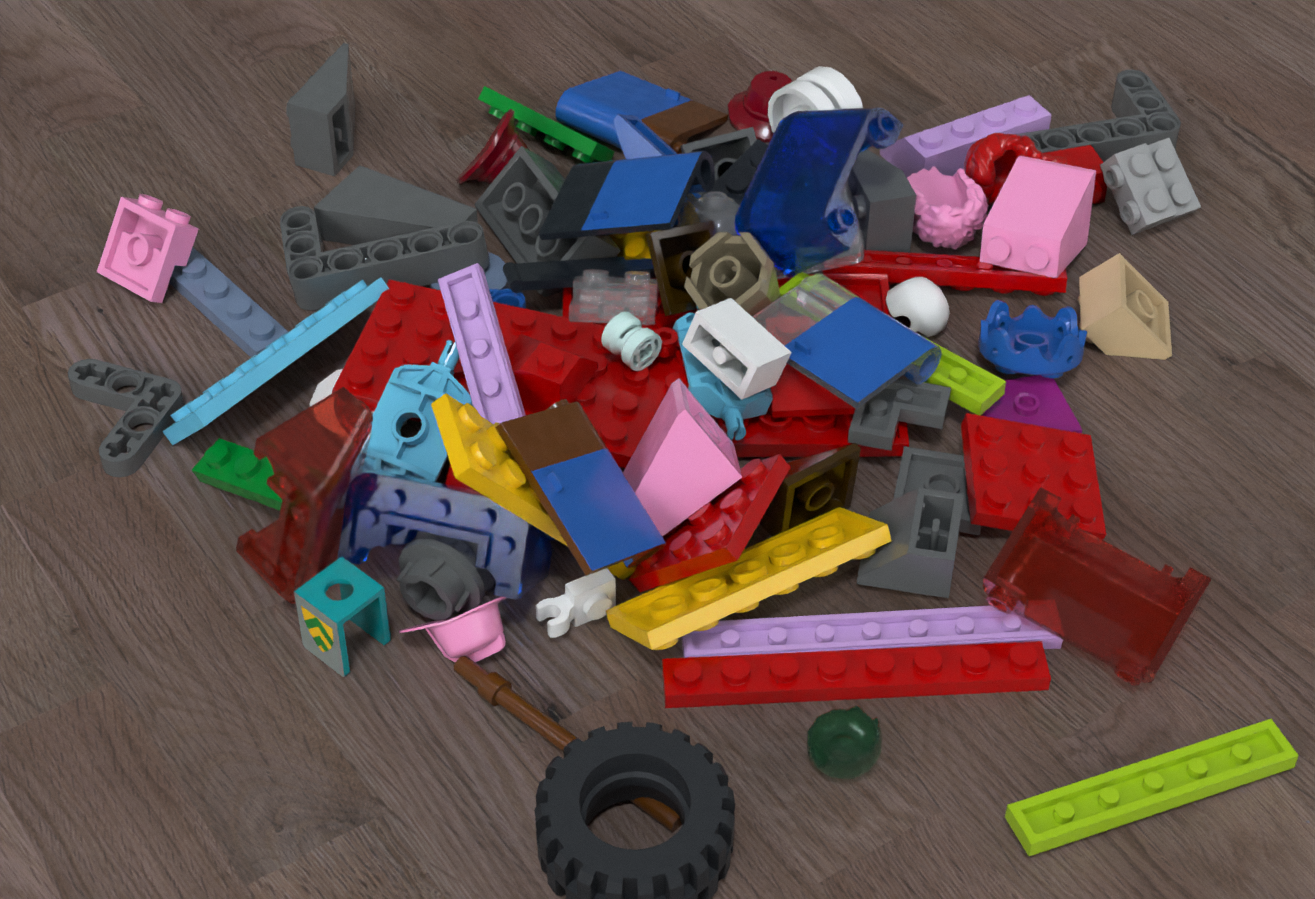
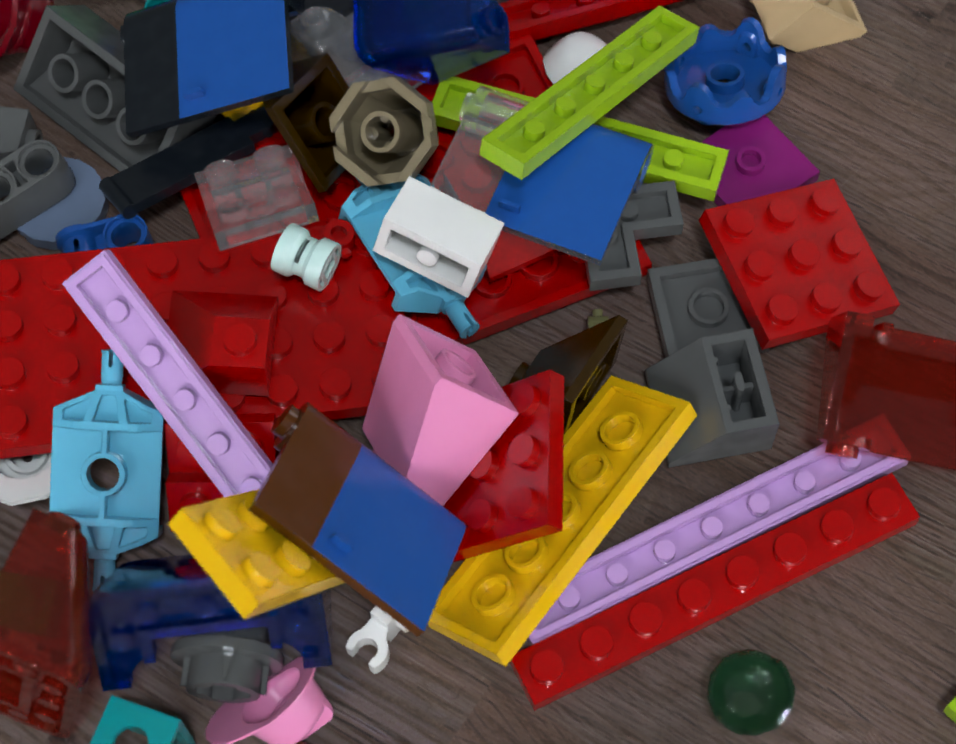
camera: 20 degrees left, 20 degrees up
(903, 296) = (588, 92): none -> lime plate

